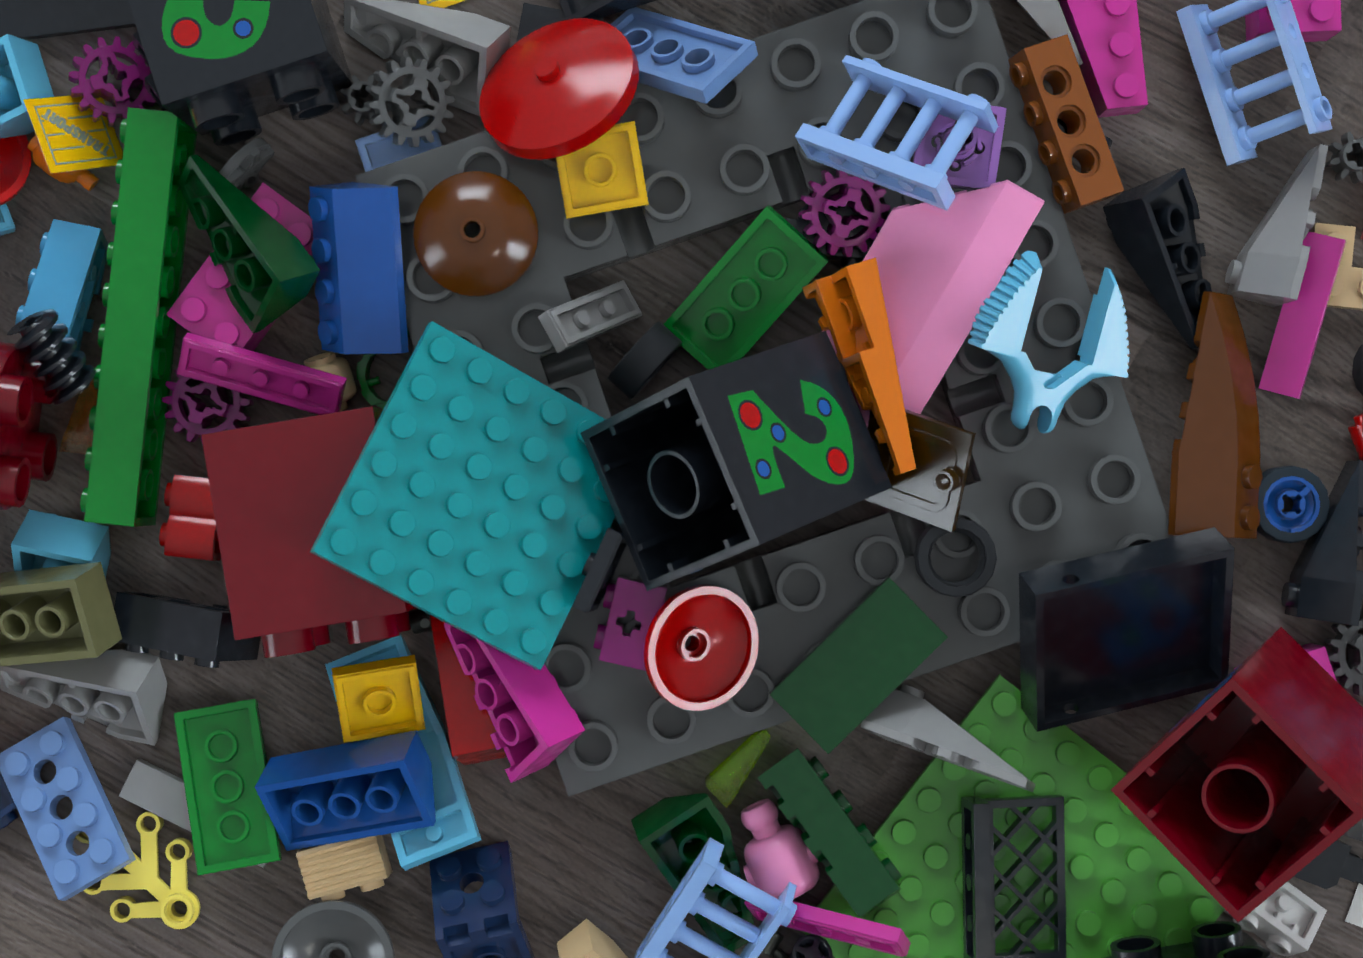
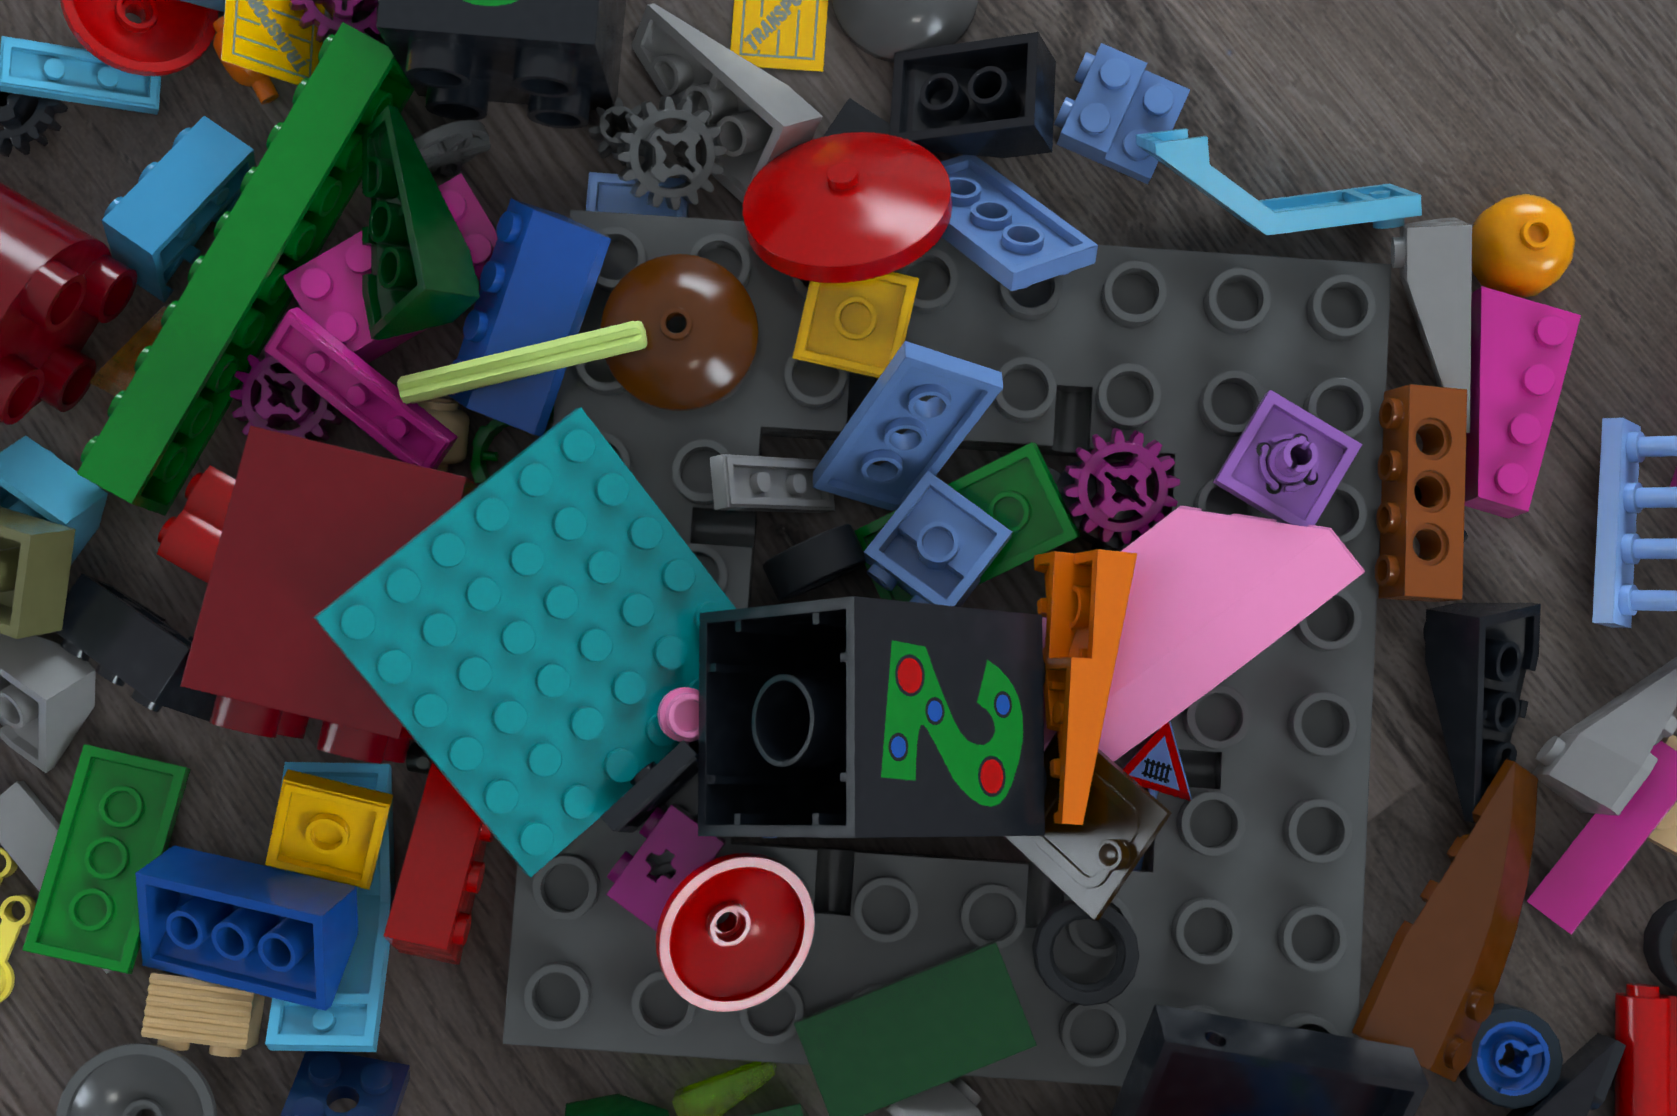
camera: 25 degrees right, 5 degrees down
(54, 353) = (128, 266): black piece -> none
(372, 304) = (523, 362): none -> yellowish green axle
(523, 703) = (495, 910): dark pink wedge -> none
(597, 511) = (680, 714): none -> bright pink plate
(691, 232) = (893, 404): none -> medium blue plate
(728, 311) = (935, 545): none -> medium blue plate
(895, 169) = (1202, 458): light blue fence -> none
(955, 405) = (1159, 768): none -> piece
(1002, 330) = (1251, 705): medium azure piece -> none

